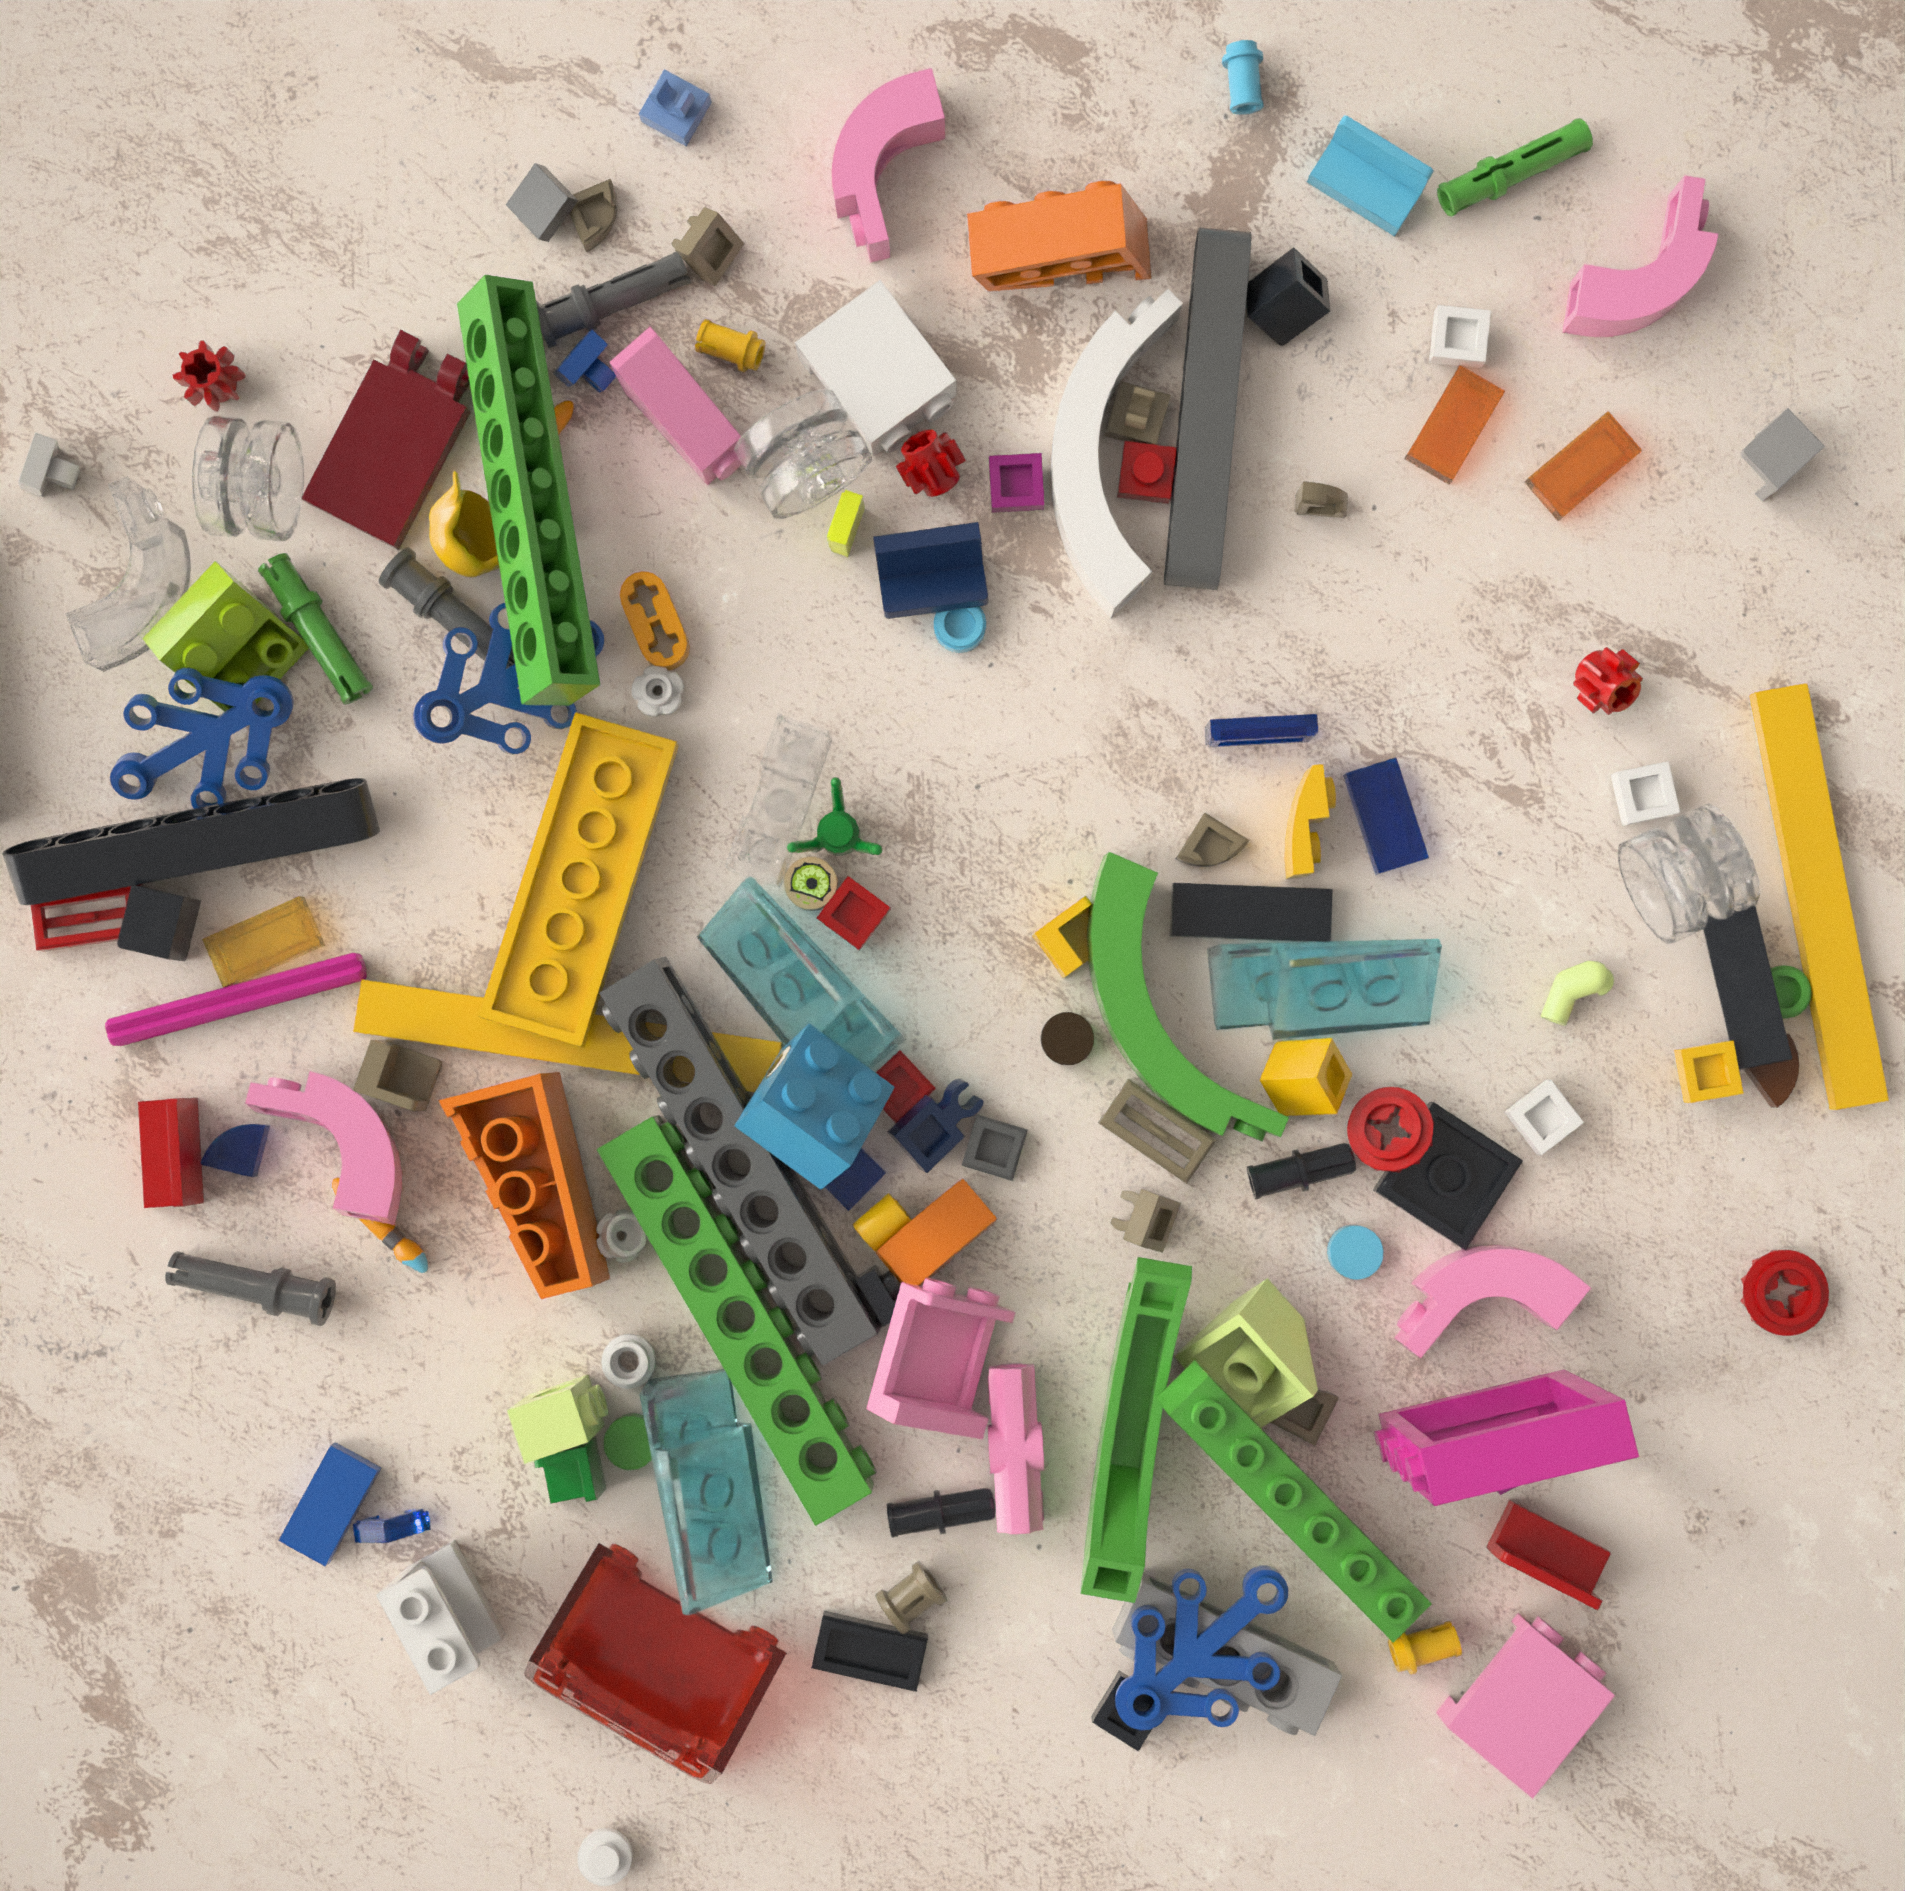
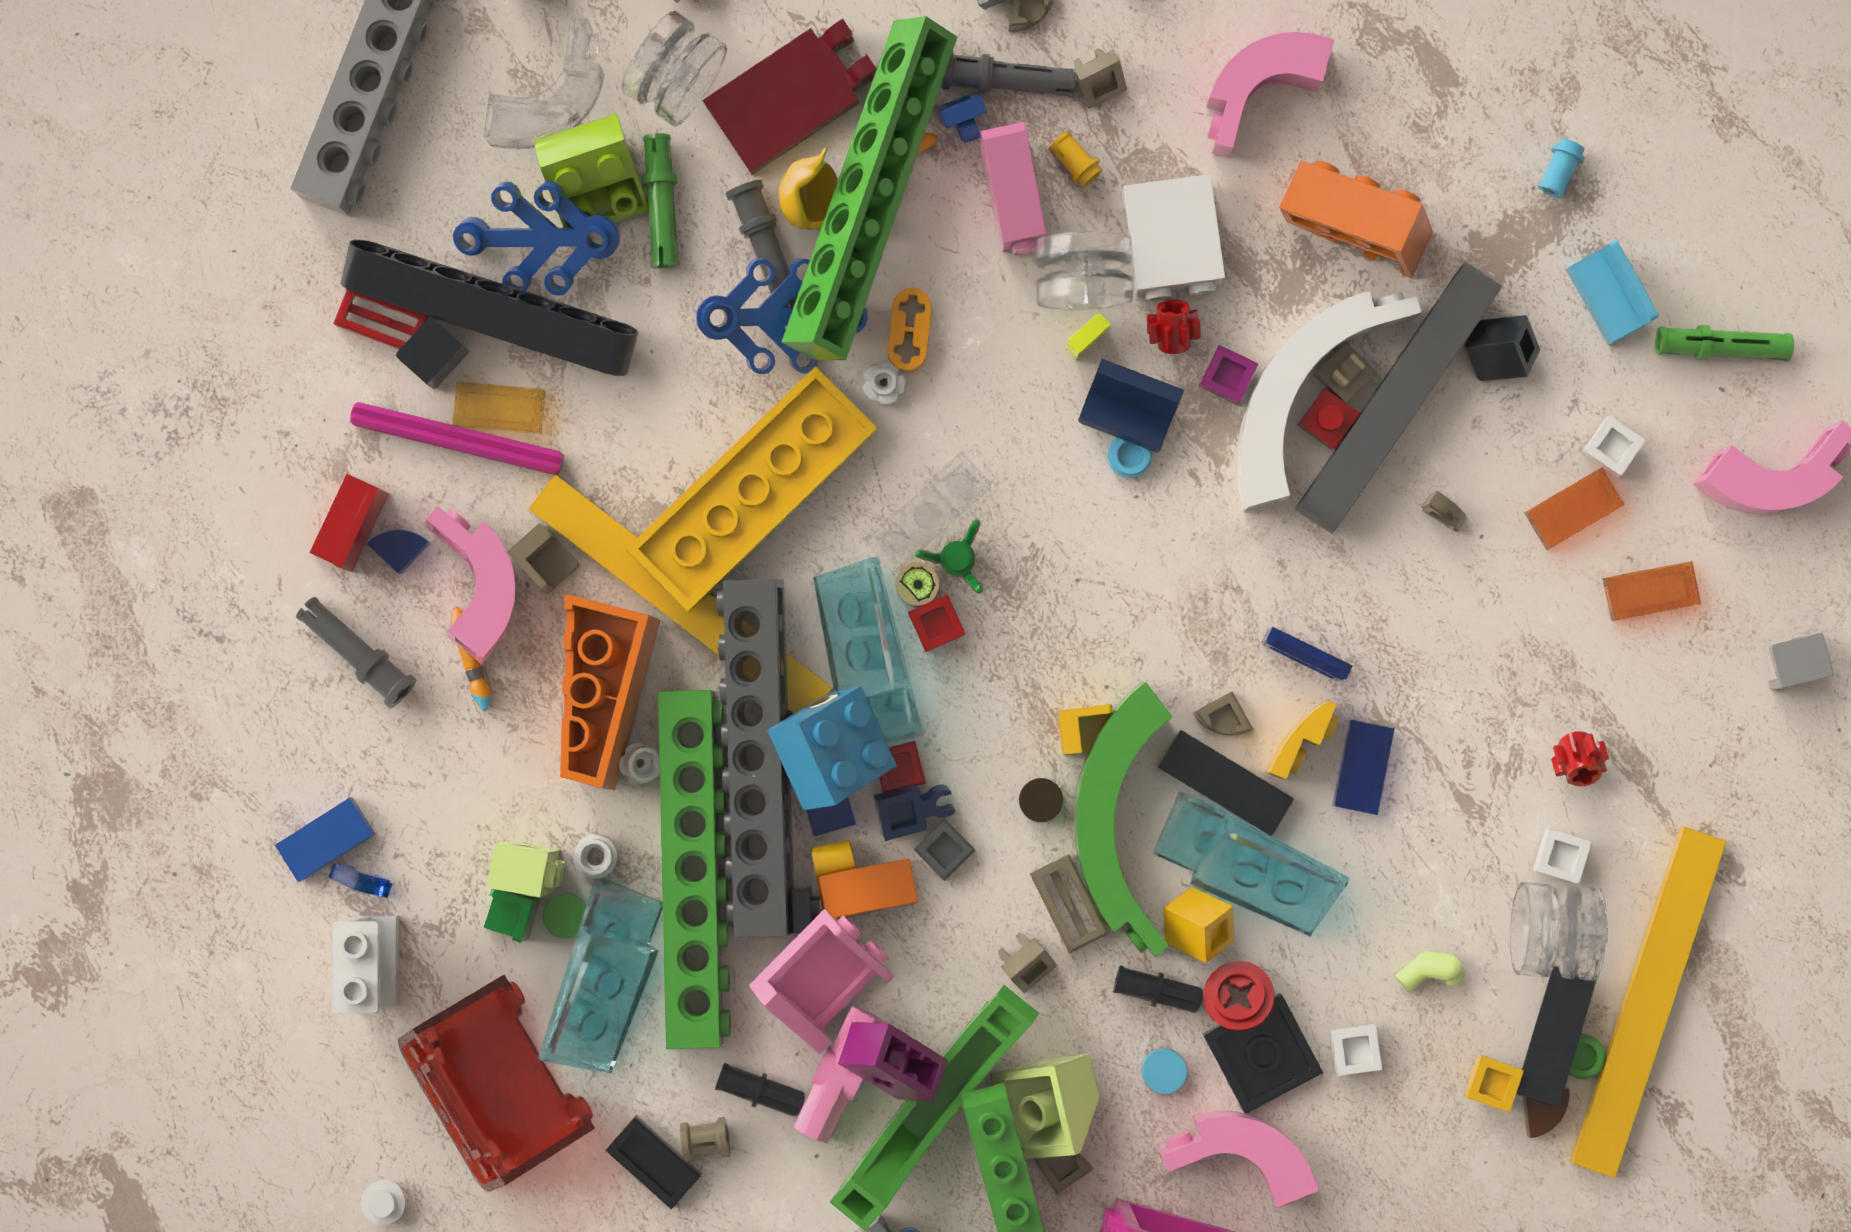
camera: 30 degrees right, 0 degrees up
(1064, 1404) = (893, 1061): none -> magenta brick

